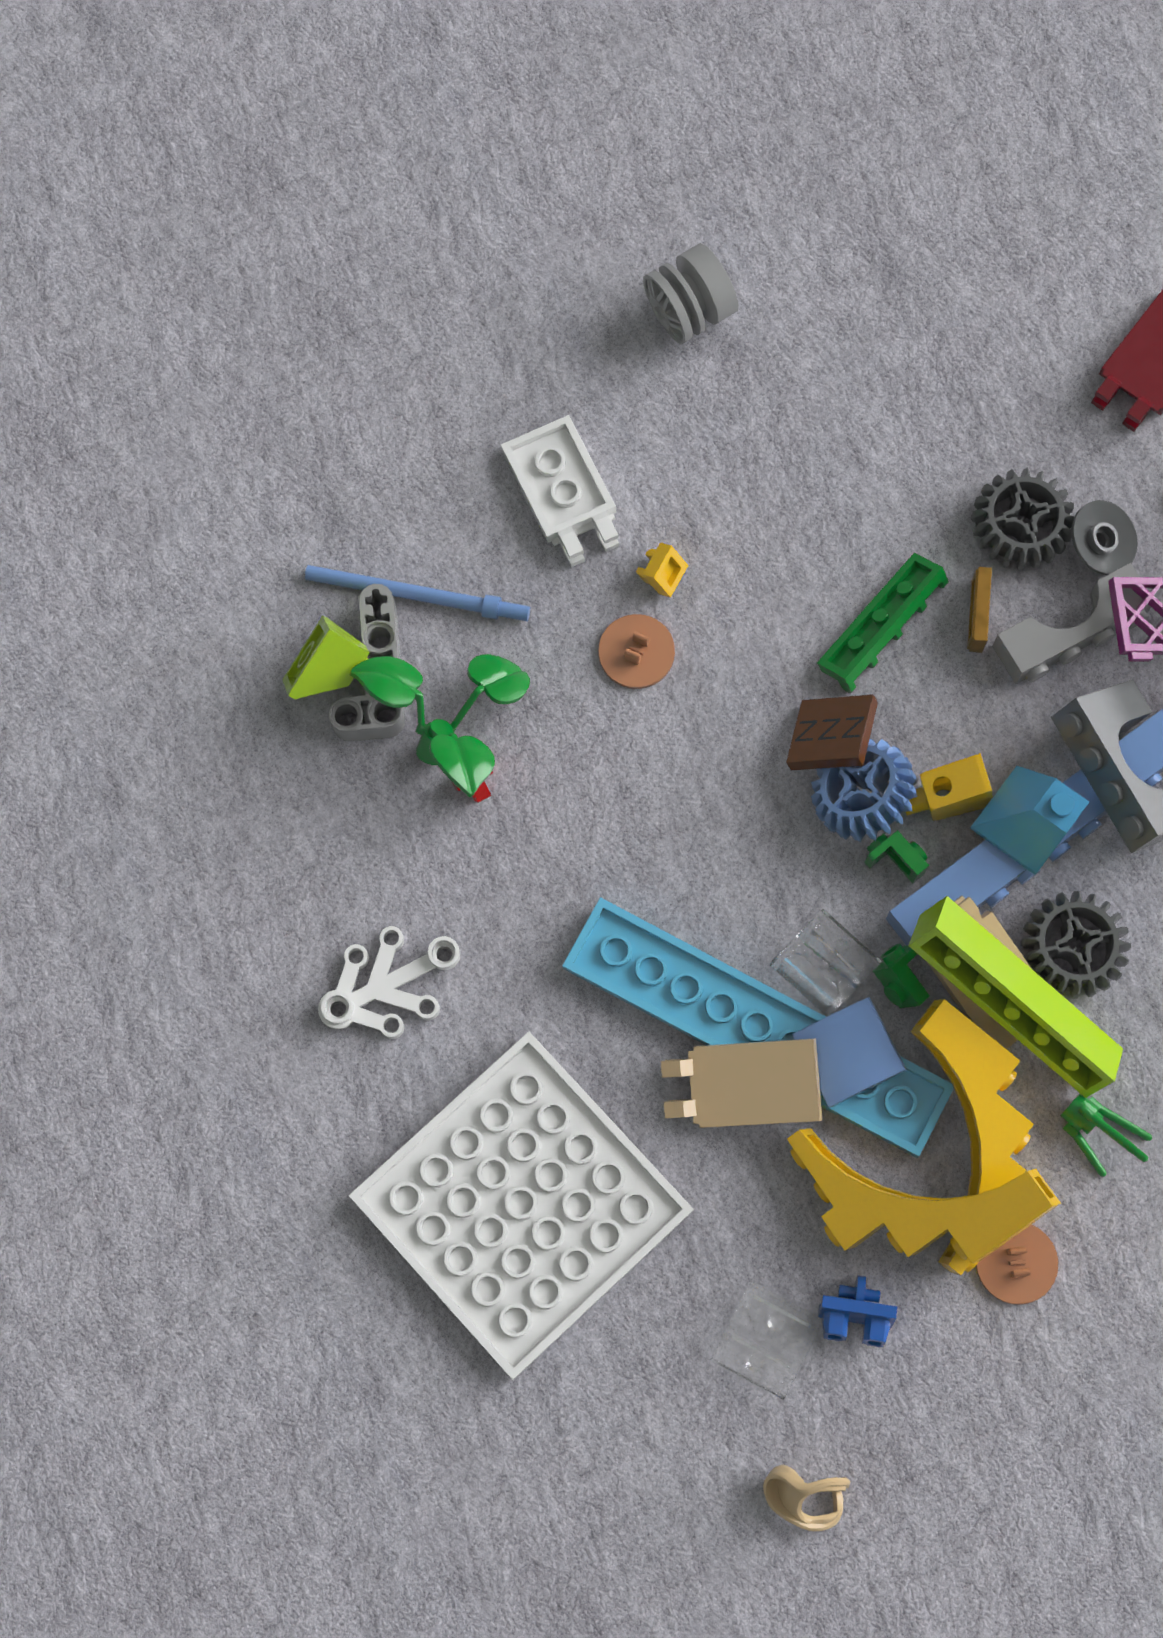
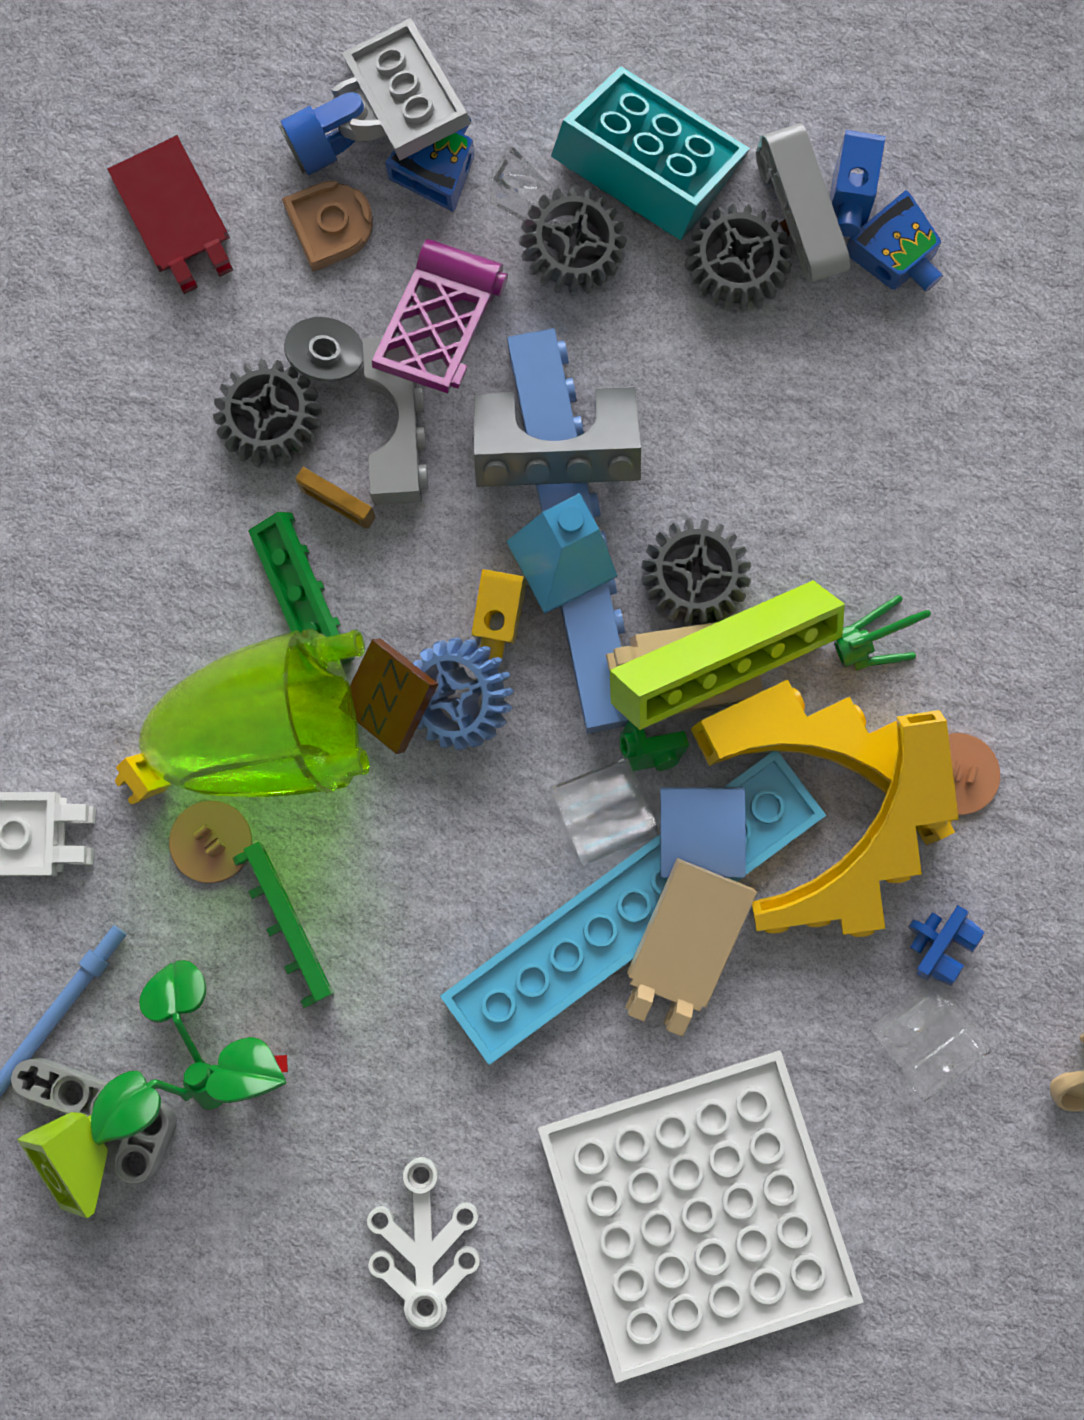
camera: 65 degrees left, 5 degrees up
(599, 744) = (287, 922): none -> green hinge
(759, 637) = (261, 721): none -> clear neon green windscreen
(907, 856) = (538, 685): green bracket -> none

